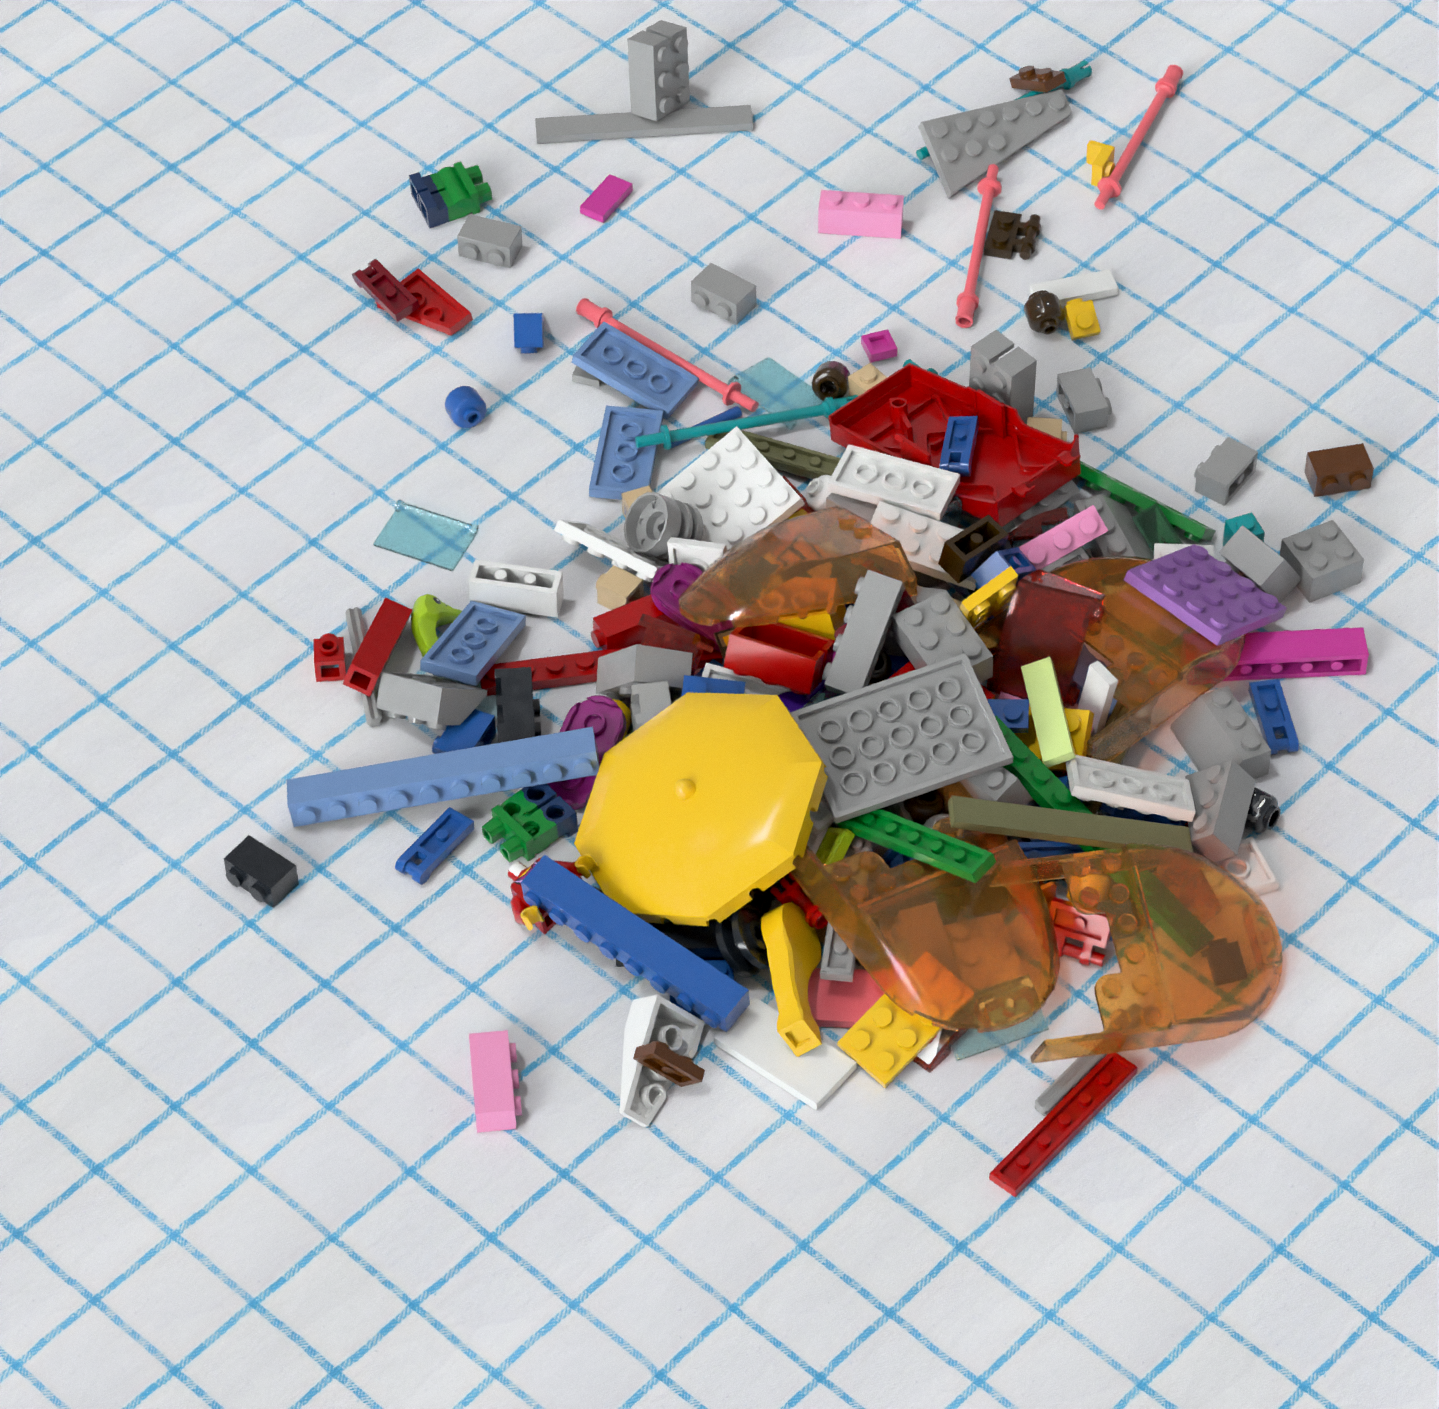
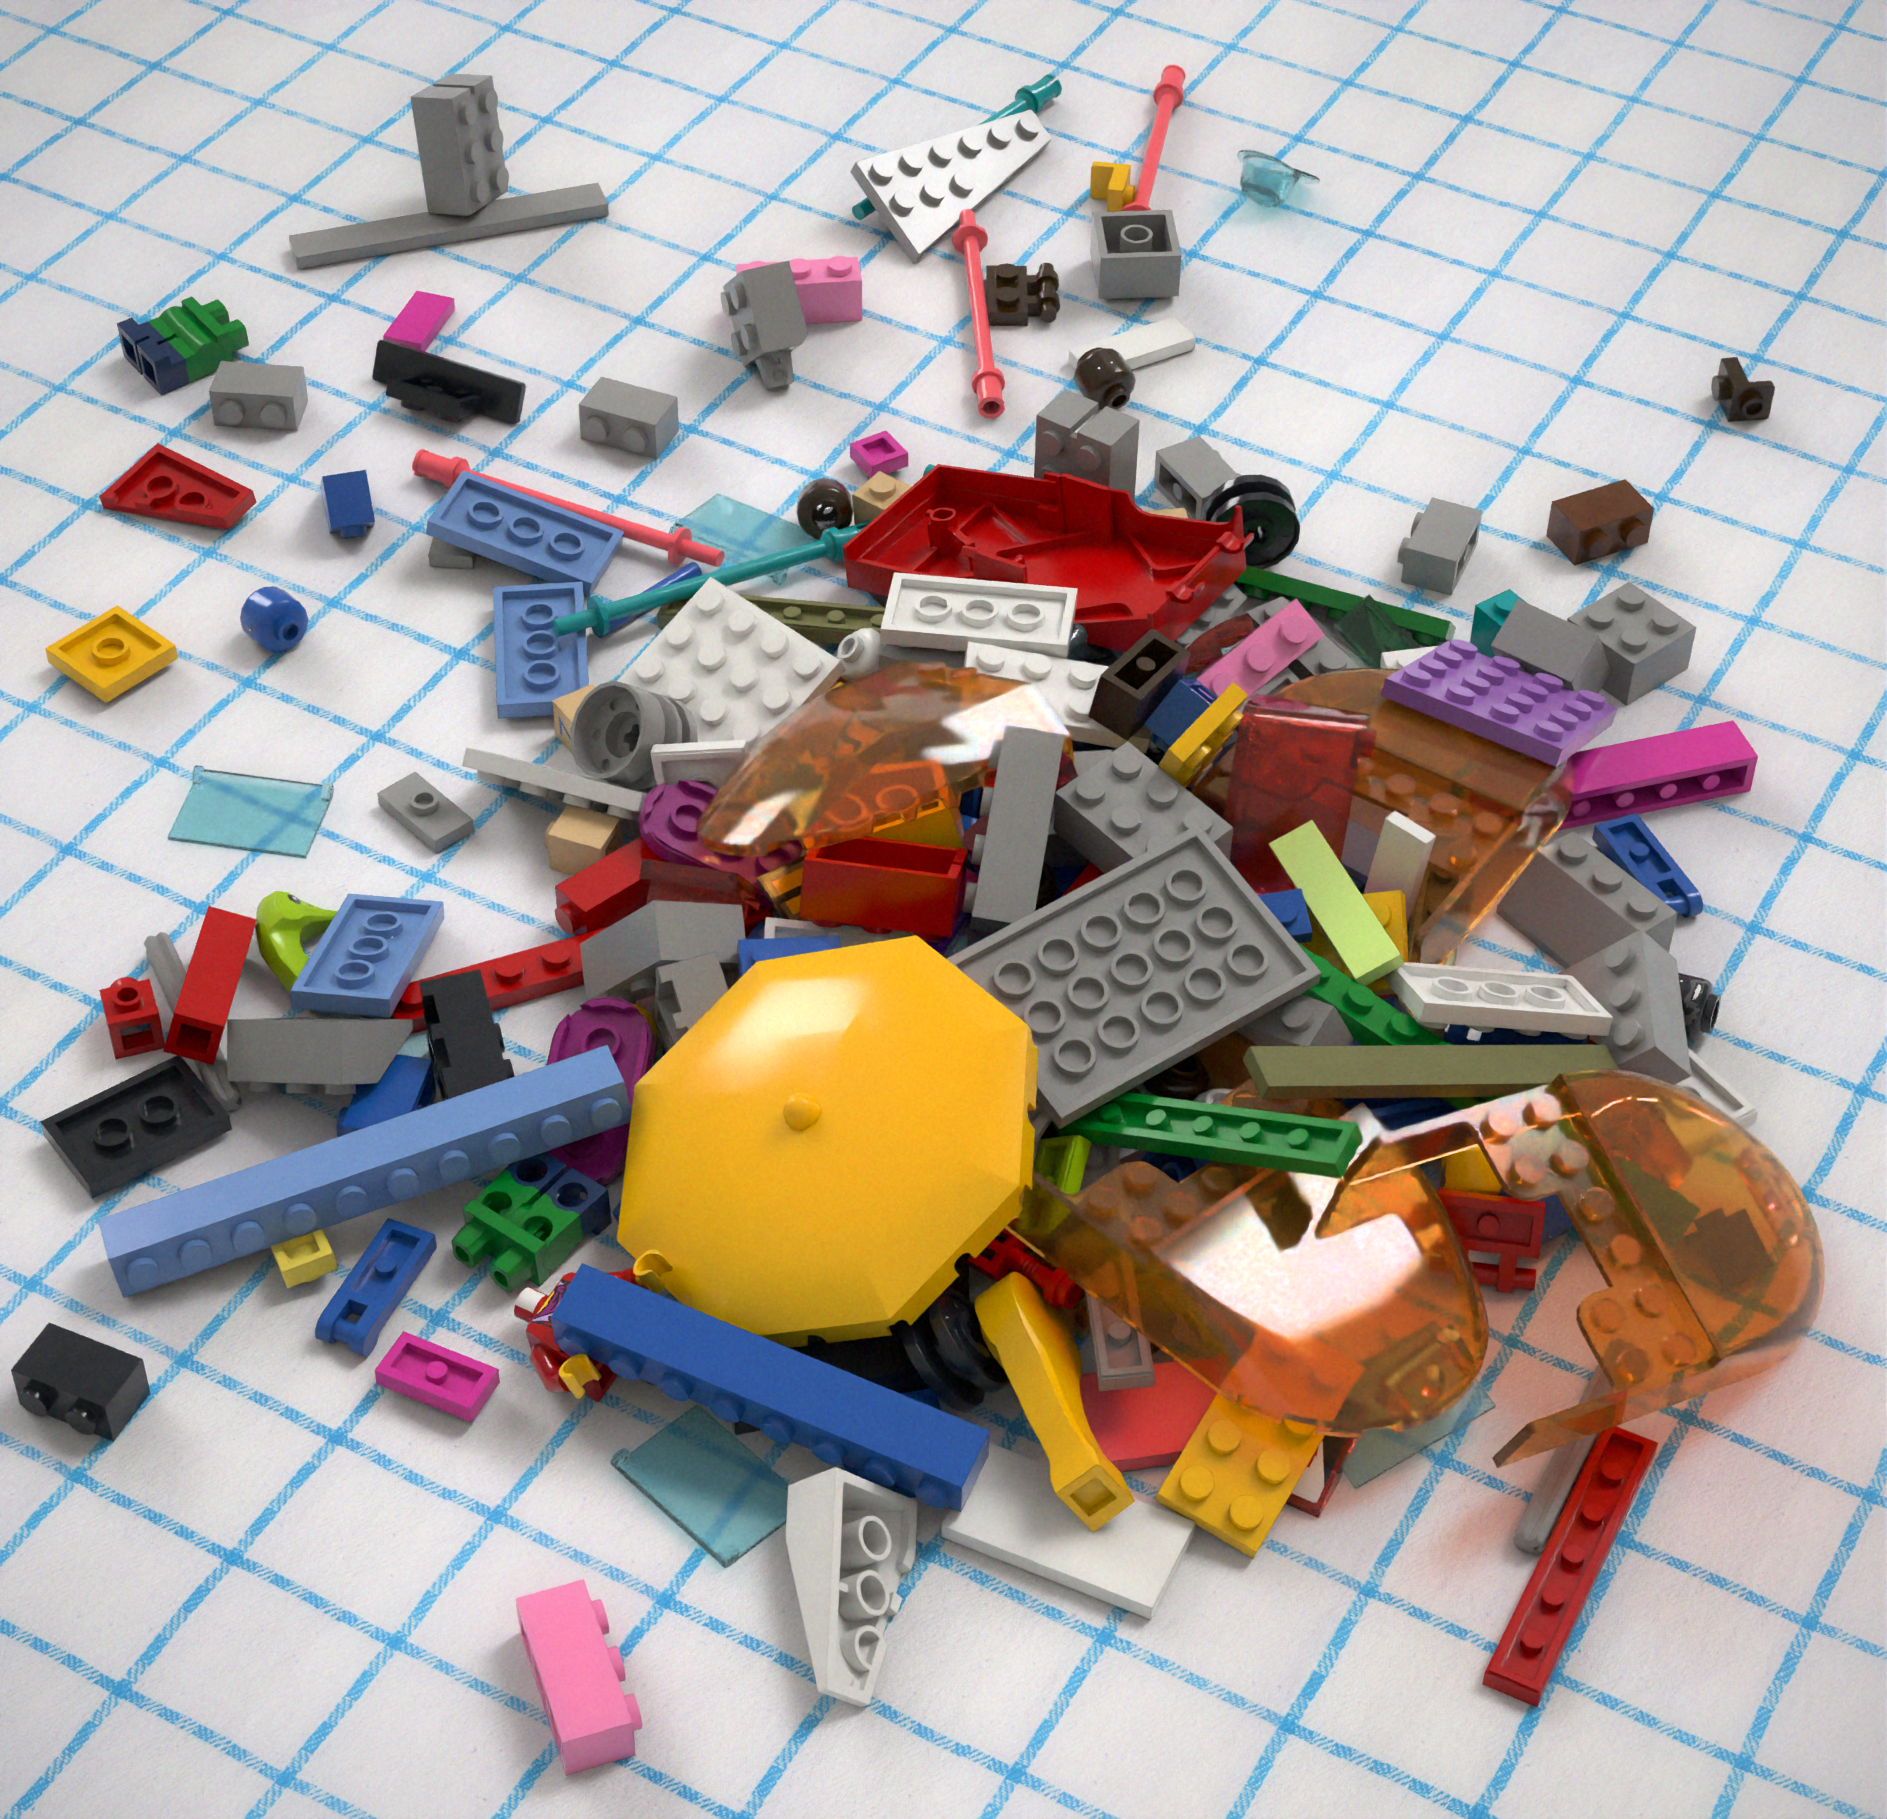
camera: 15 degrees left, 5 degrees down
(319, 726) = (136, 1126): none -> black plate
(362, 414) = (111, 653): none -> yellow plate
(386, 290) = (114, 477): dark red plate -> none
(398, 822) = (304, 1258): none -> light yellow plate
(457, 903) = (437, 1376): none -> dark pink plate
(516, 587) = (419, 861): white brick -> none
(529, 550) = (425, 812): none -> light grey plate
(592, 991) = (708, 1485): none -> clear light blue piece
(609, 251) = (445, 385): none -> black bracket
(669, 1064) = (884, 1585): reddish brown plate -> none
(828, 238) = (765, 320): none -> light grey hinge
(959, 445) = (1056, 552): blue plate -> none
(1037, 79) = (998, 102): reddish brown plate -> none
(1081, 318) = (1159, 381): yellow bracket -> none
(1095, 218) = (1135, 254): none -> light grey brick
(1103, 436) = (1266, 512): none -> black wheel
(1207, 172) = (1268, 178): none -> clear light blue piece

